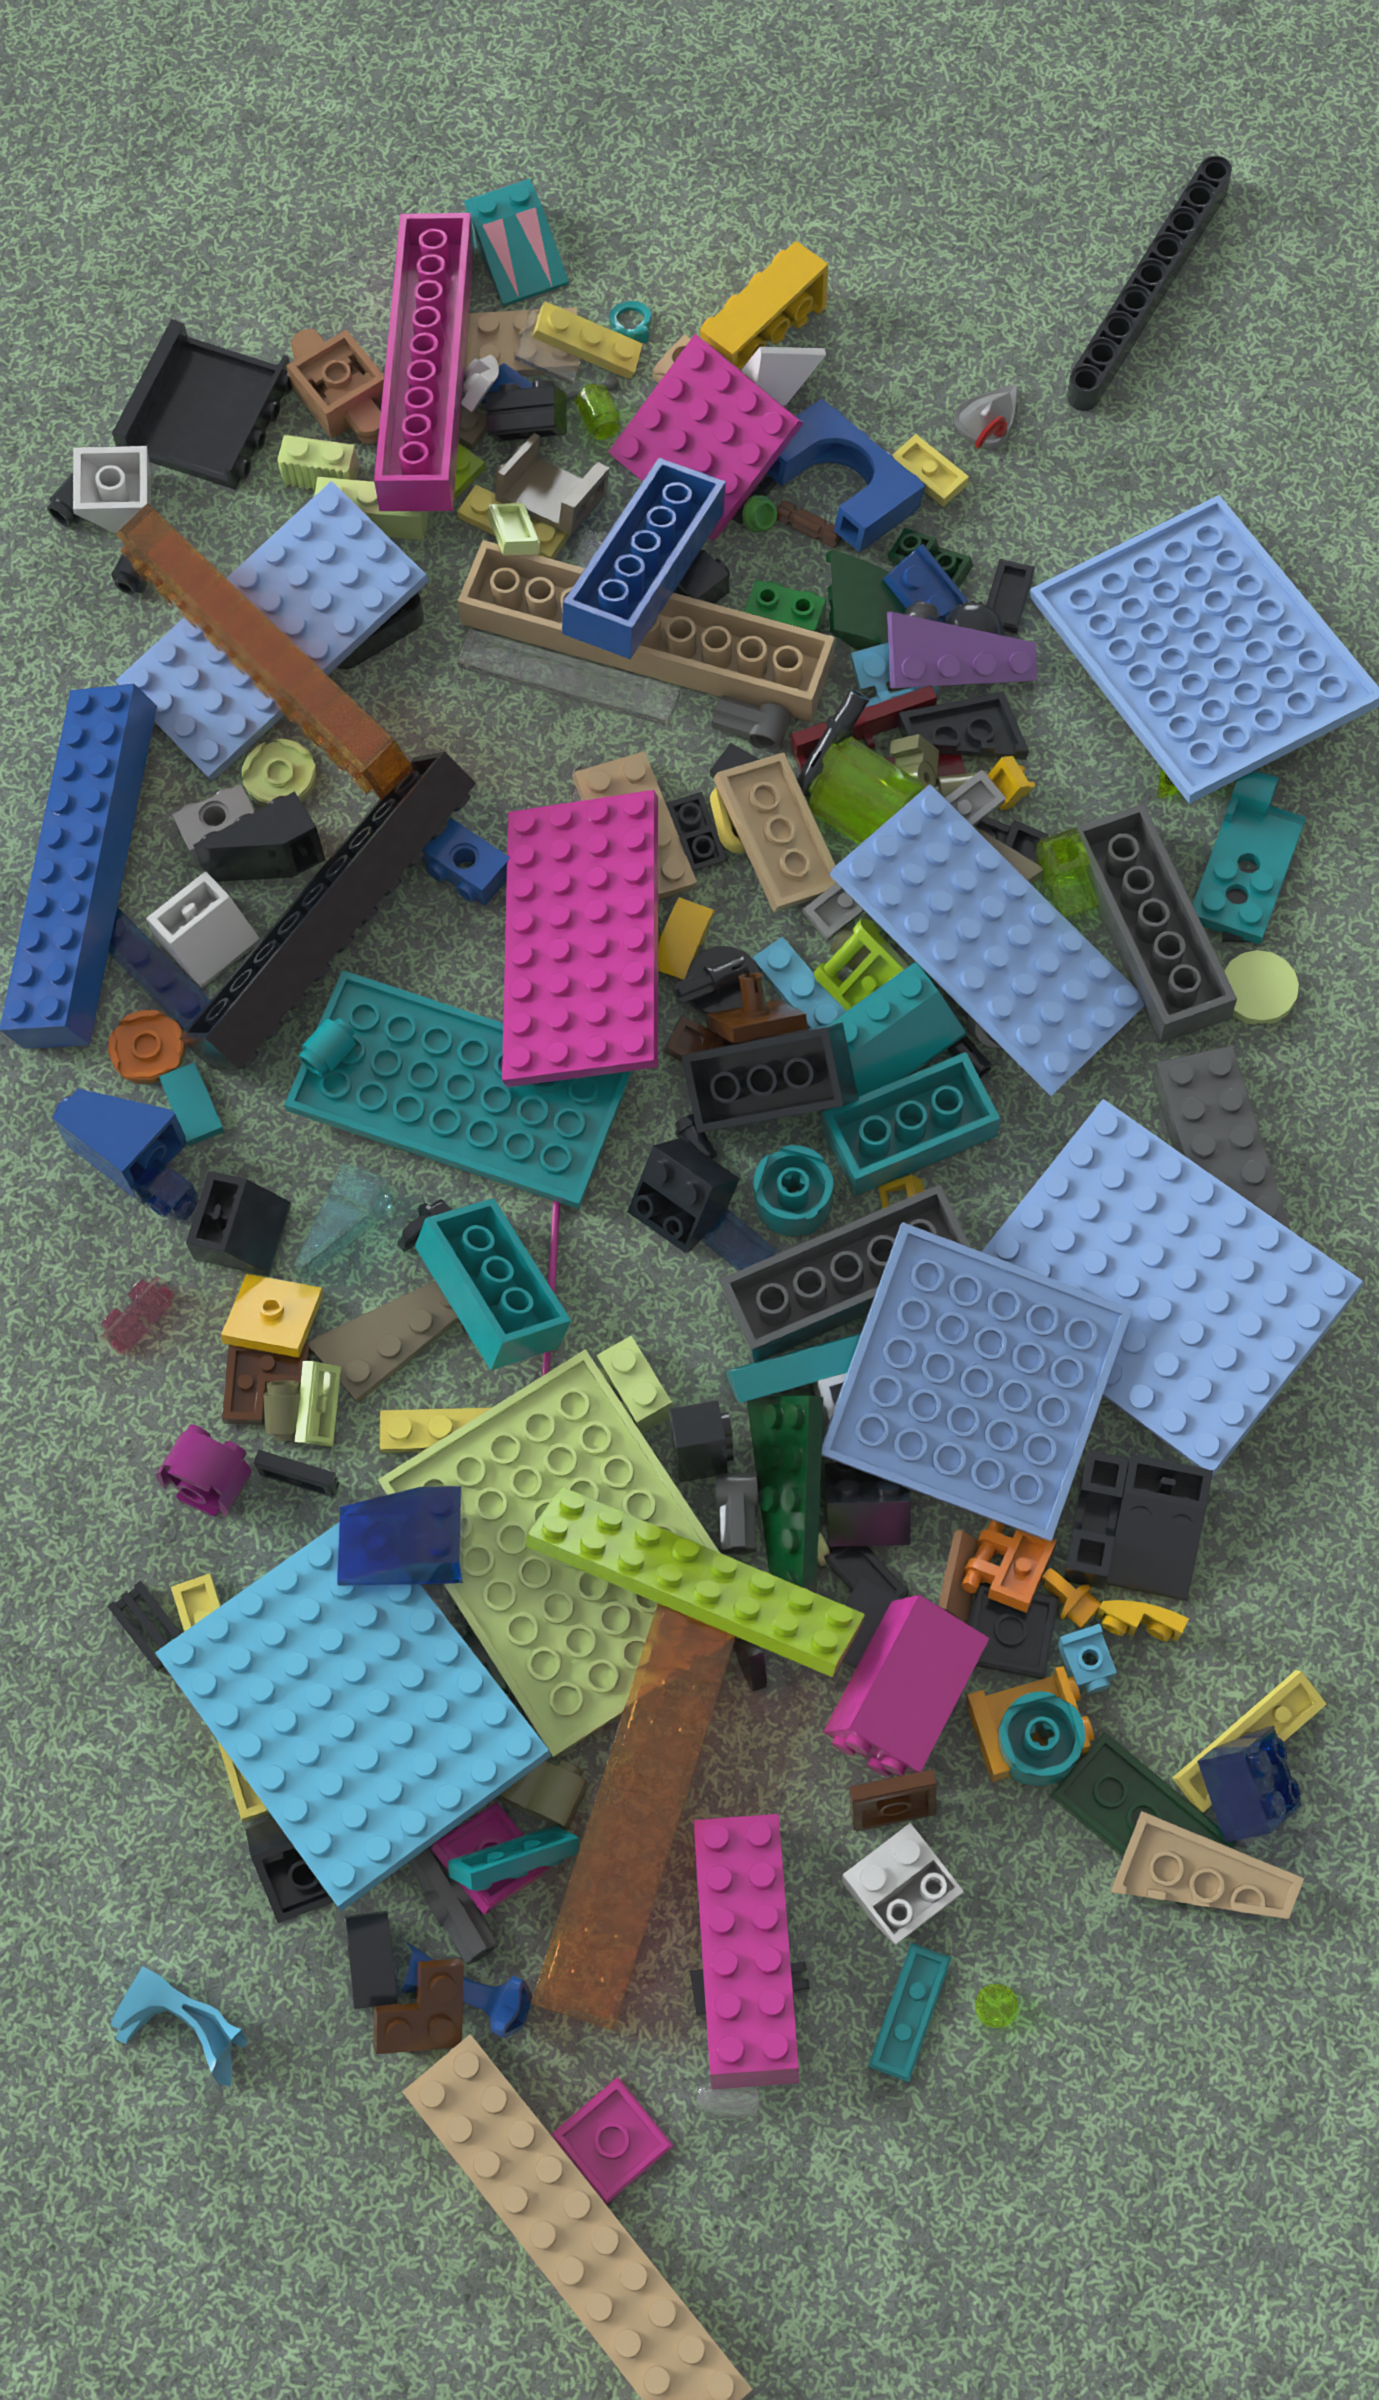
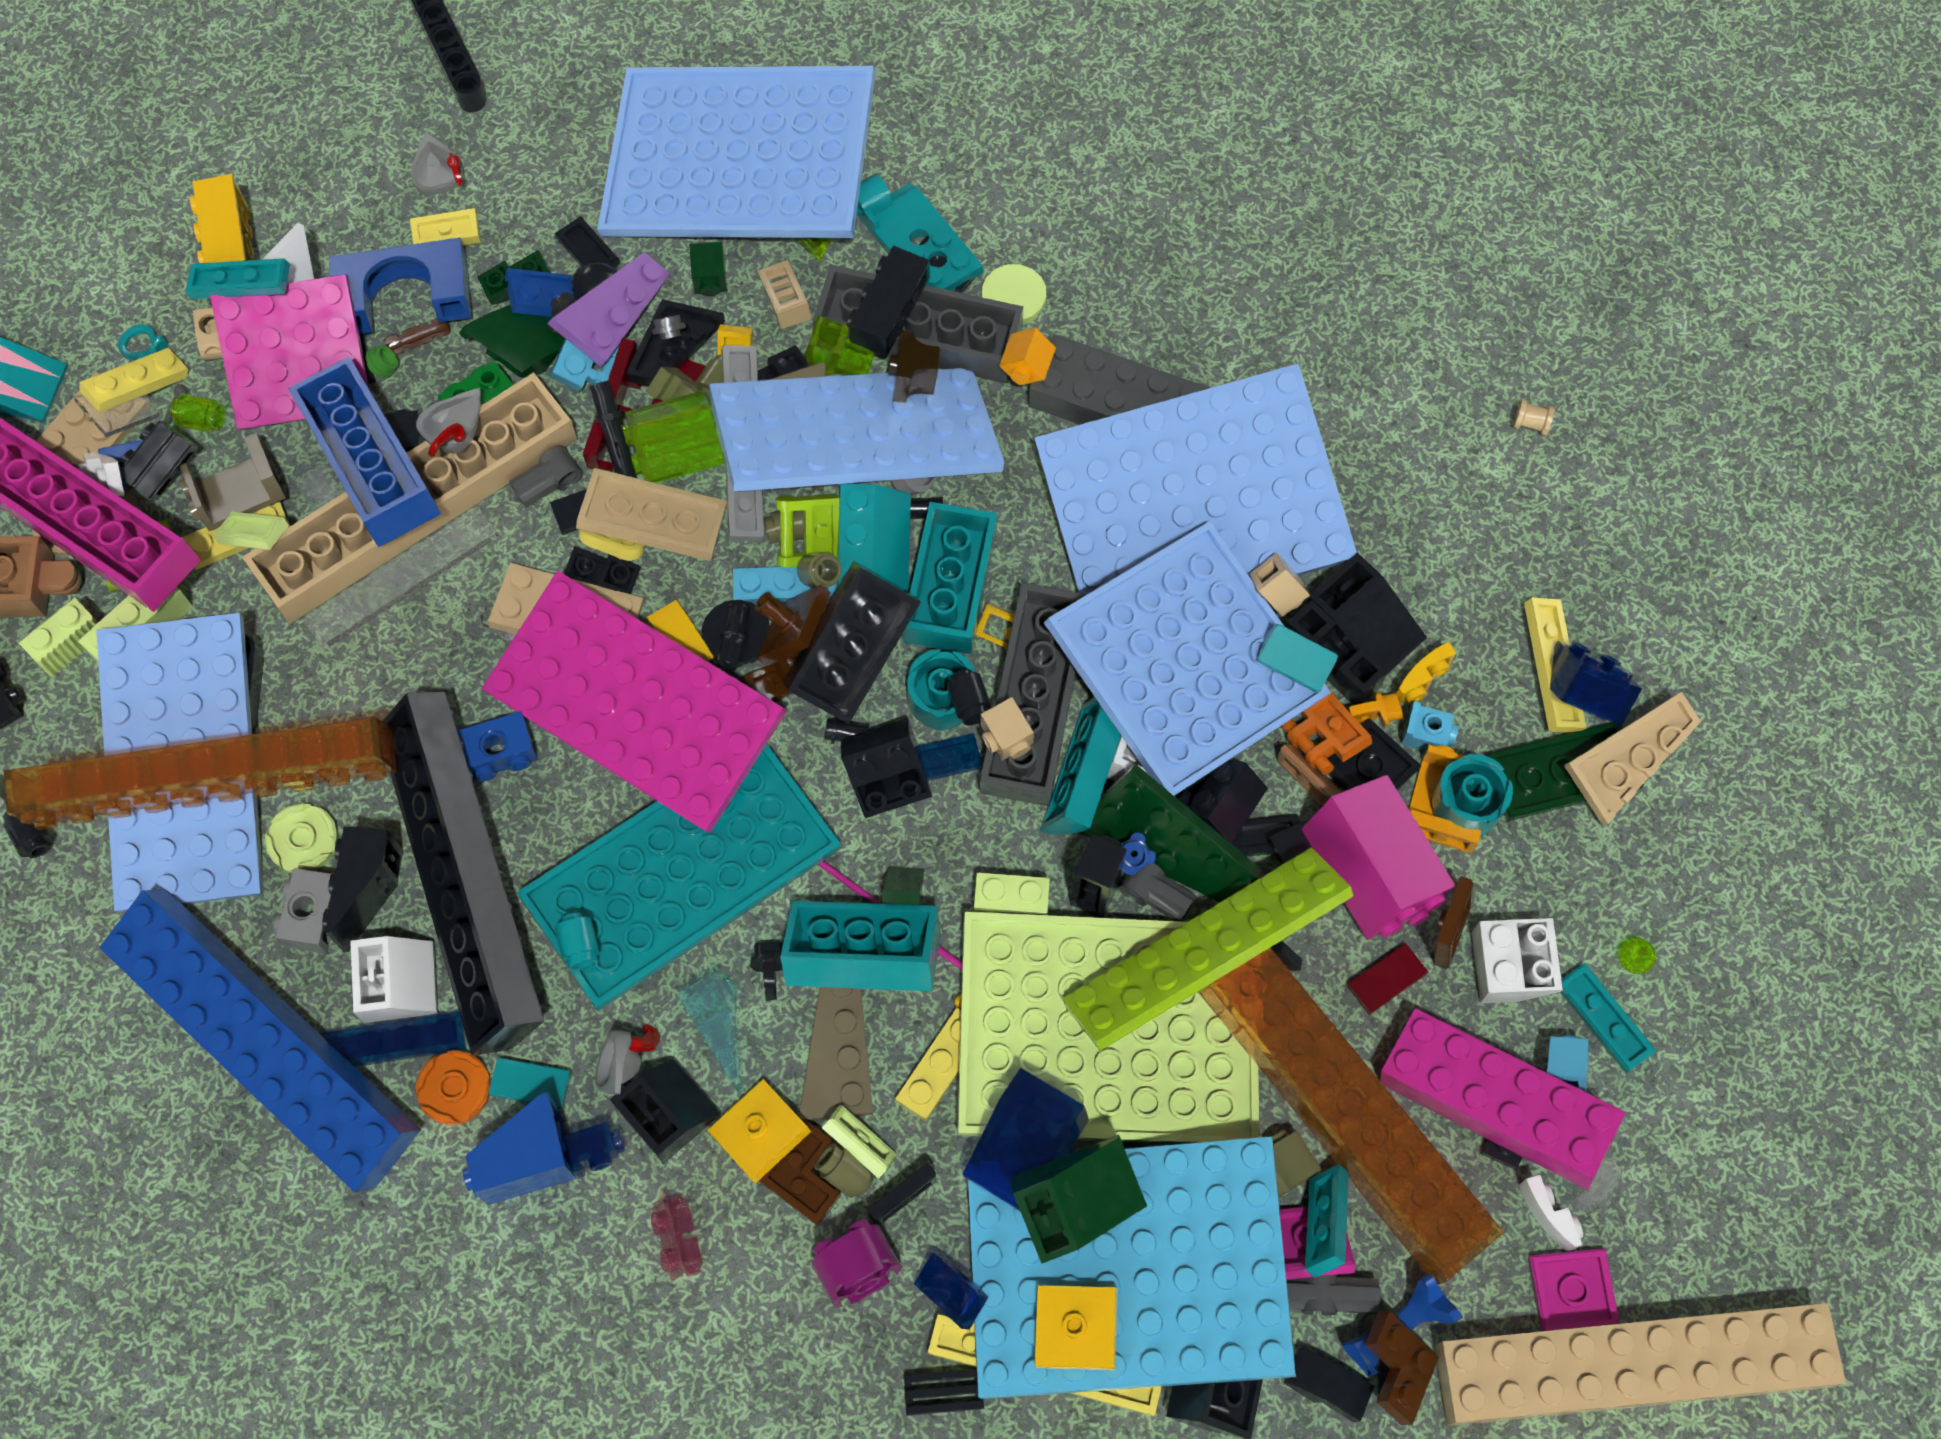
camera: 60 degrees left, 0 degrees up
(235, 1569) = (951, 1290): none -> clear blue tile
(259, 1159) = (621, 1058): none -> light grey piece
(261, 1690) = (1076, 1327): none -> yellow plate
(370, 1610) = (1077, 1197): none -> dark green slope
(577, 1282) = (903, 886): none -> dark green tile
(665, 2084) = (1559, 1224): none -> white slope
(726, 342) = (238, 278): none -> teal tile
(729, 606) = (451, 422): none -> light grey piece
(739, 1461) = (1144, 856): none -> blue plate
(778, 1266) = (1006, 730): none -> tan brick
(788, 1212) = (968, 696): none -> black brick
(802, 1778) = (1387, 979): none -> dark red tile
(815, 1012) = (819, 569): none -> olive brick
(827, 1998) = (1569, 1060): none -> medium azure brick
(970, 714) = (668, 327): none -> flat silver plate
(1053, 1482) = (1296, 657): none -> teal slope
(1066, 707) = (708, 268): none -> dark green brick
(1085, 809) = (791, 311): none -> tan slope
(1089, 945) = (913, 367): none -> dark brown brick
(1122, 1419) = (1279, 584): none -> tan brick
(1140, 876) = (888, 300): none -> black brick
(1182, 1037) = (1027, 356): none -> light orange brick

